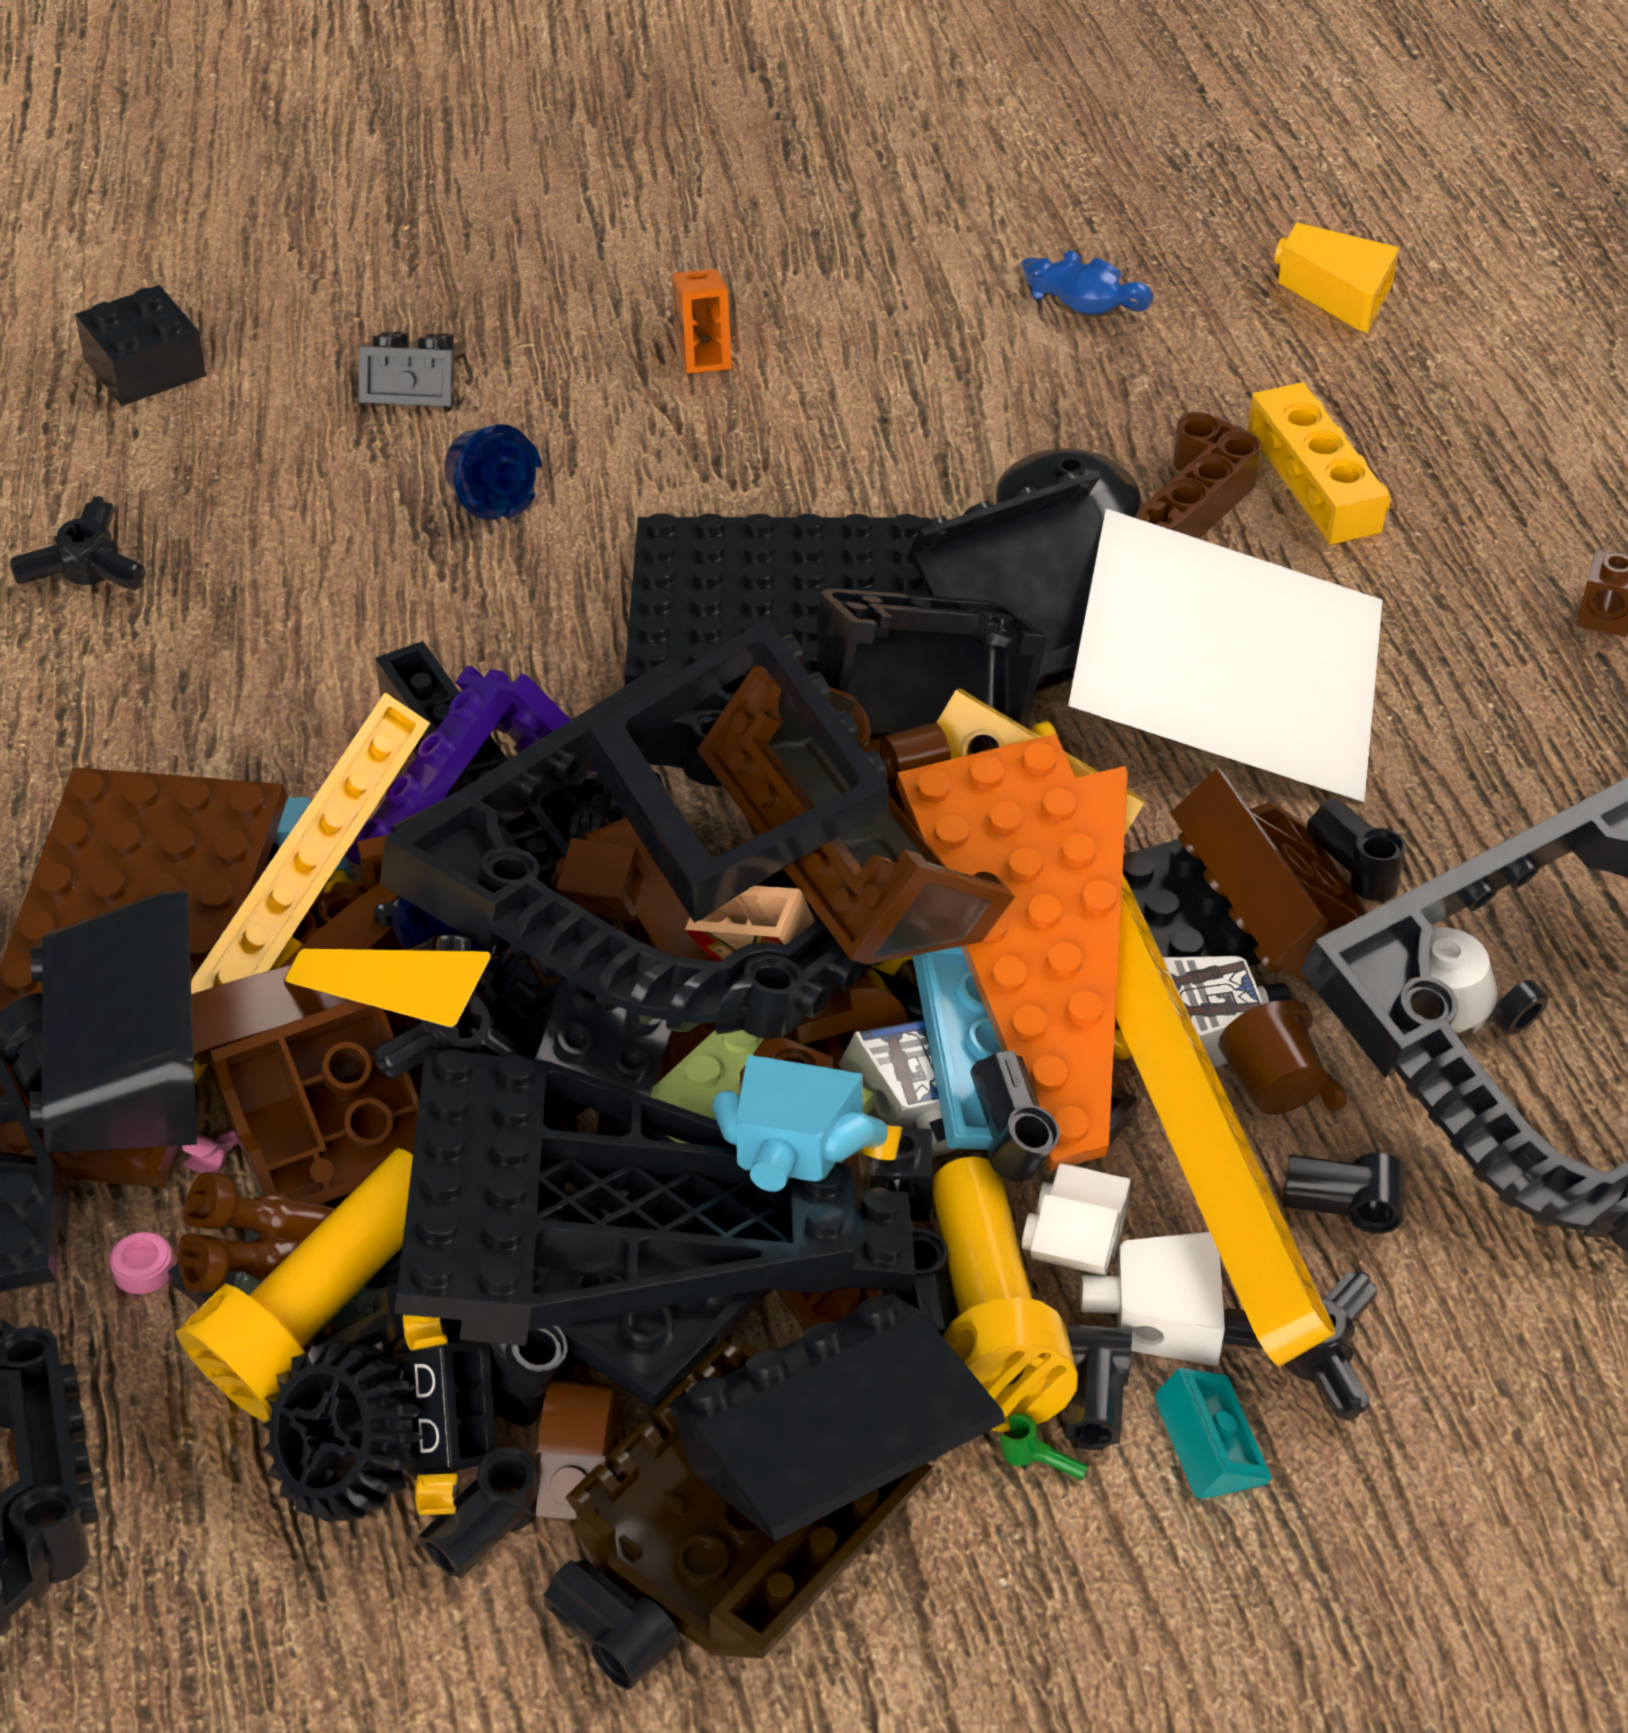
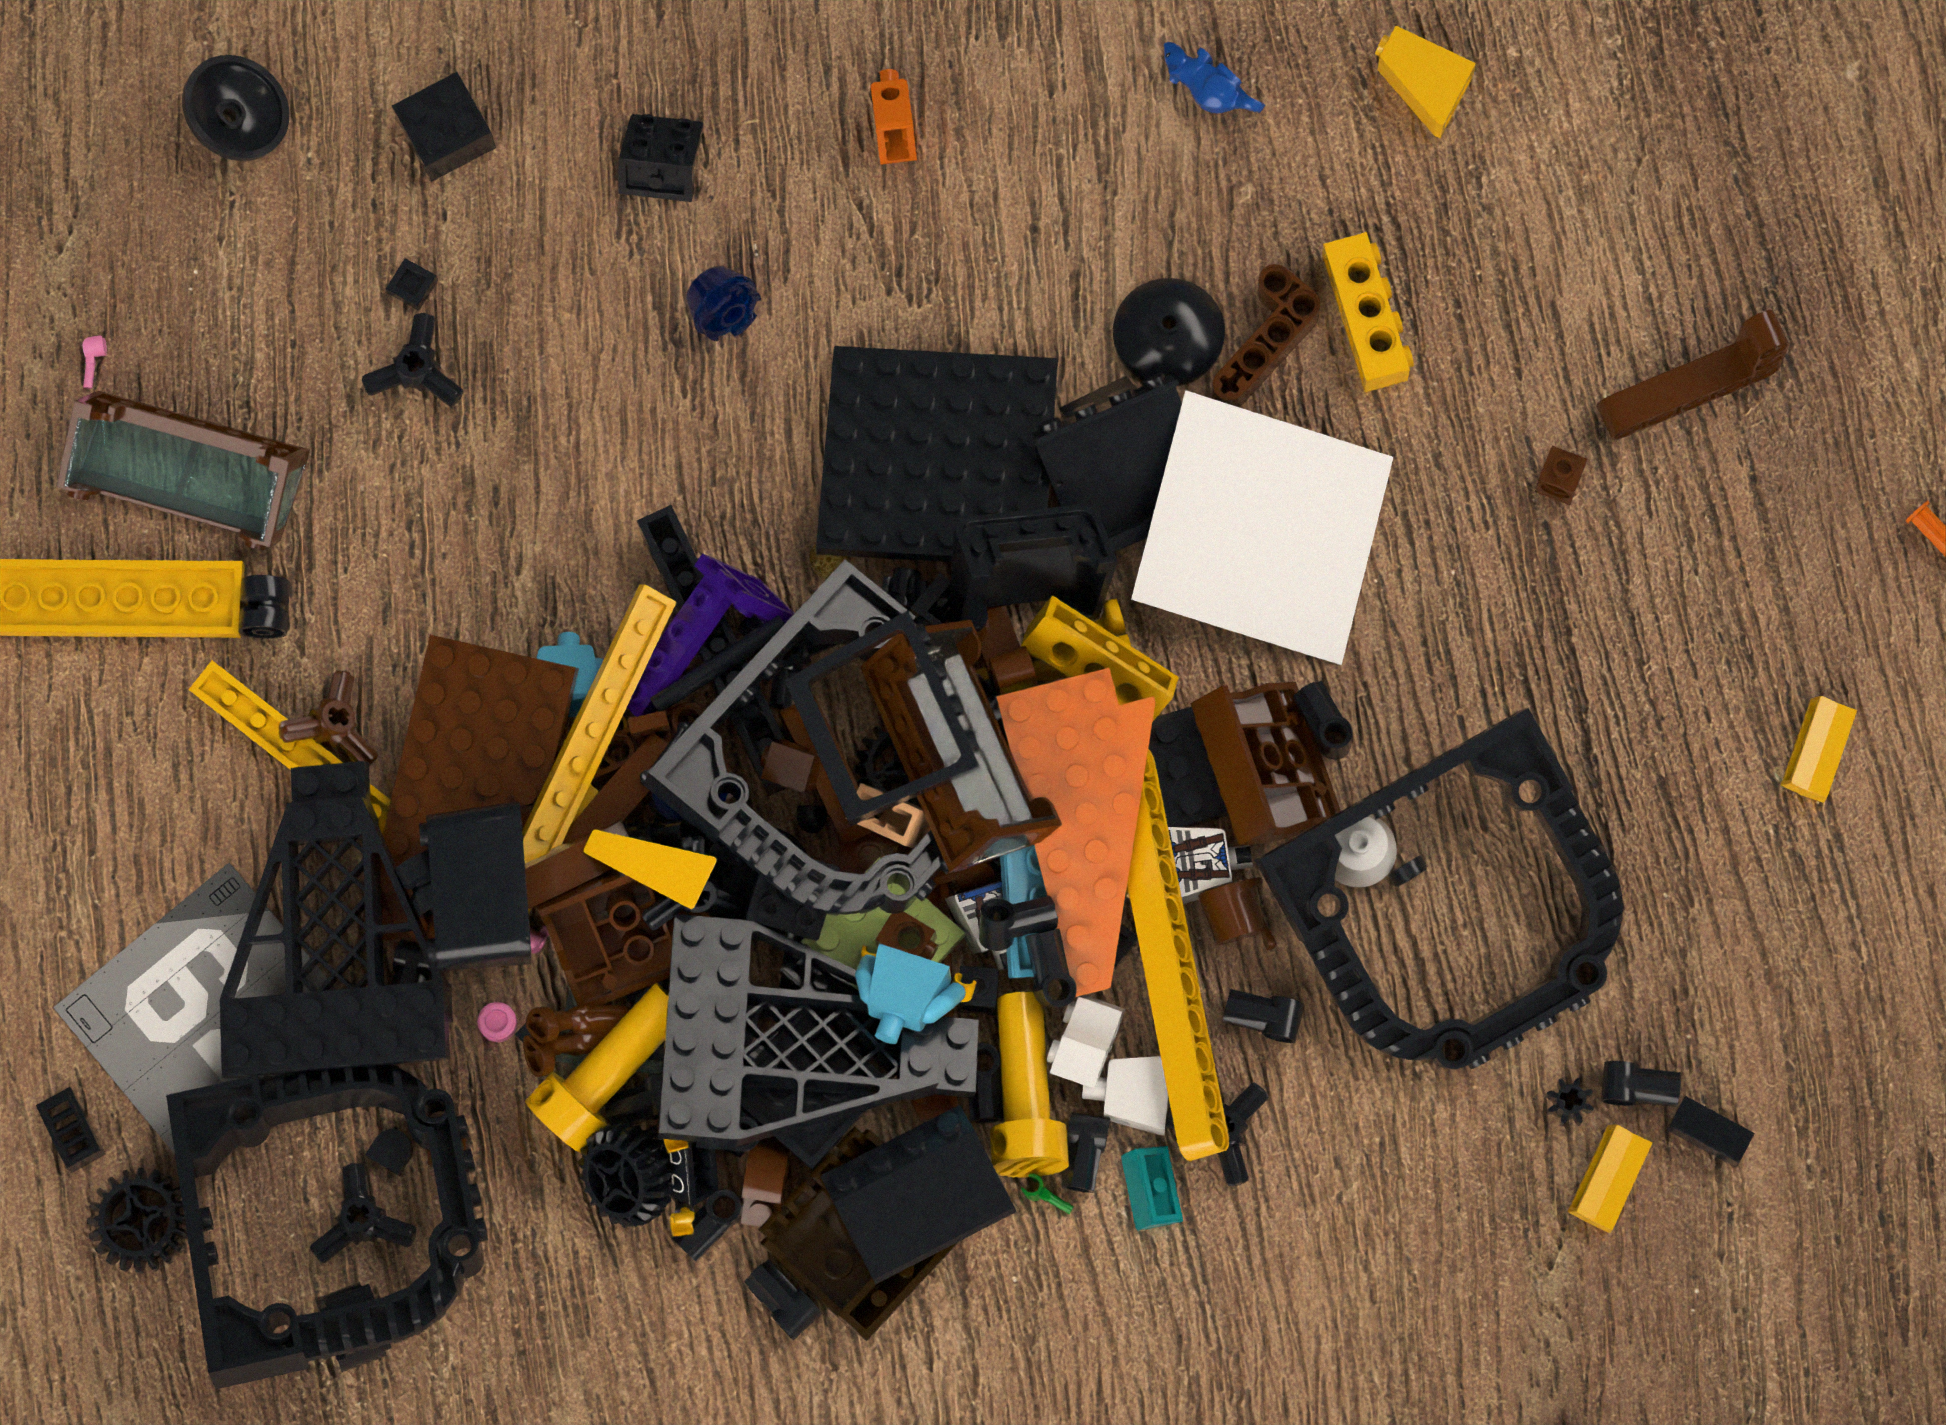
camera: 10 degrees right, 30 degrees up
(85, 482) = (412, 284): none -> black tile
(941, 1047) = (1004, 921): none -> black piece

